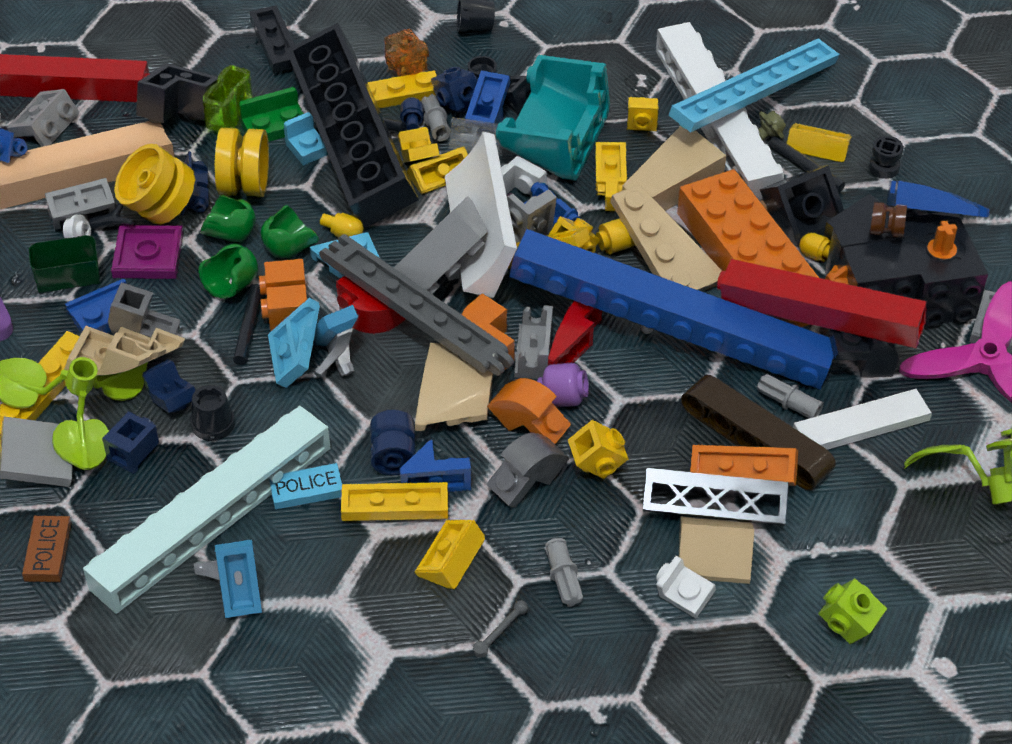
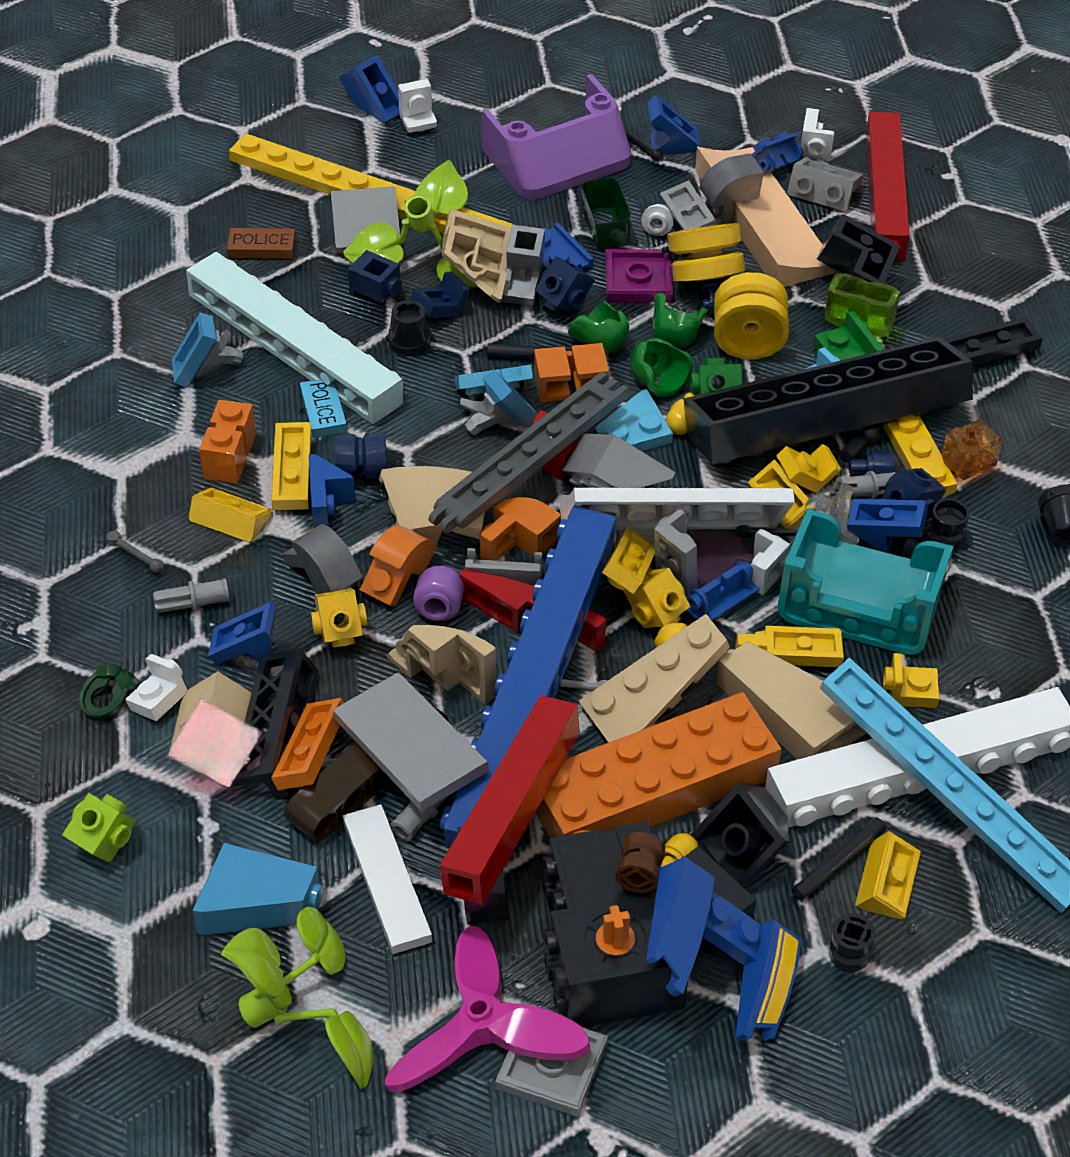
camera: 90 degrees right, 0 degrees up
(62, 159) = (731, 182): none -> flat silver brick
(173, 292) = (564, 286): none -> dark blue brick
(314, 194) = (728, 375): none -> green brick
(381, 546) = (227, 441): none -> orange piece
(623, 516) = (247, 634): none -> blue slope
(652, 370) = (448, 658): none -> tan slope
(663, 631) = (126, 684): none -> dark green piece
(750, 385) = (410, 741): none -> light grey tile
(764, 521) = (214, 744): none -> clear pink piece
(771, 125) = (901, 815): olive plant -> none
(899, 503) = (254, 892): none -> dark azure slope

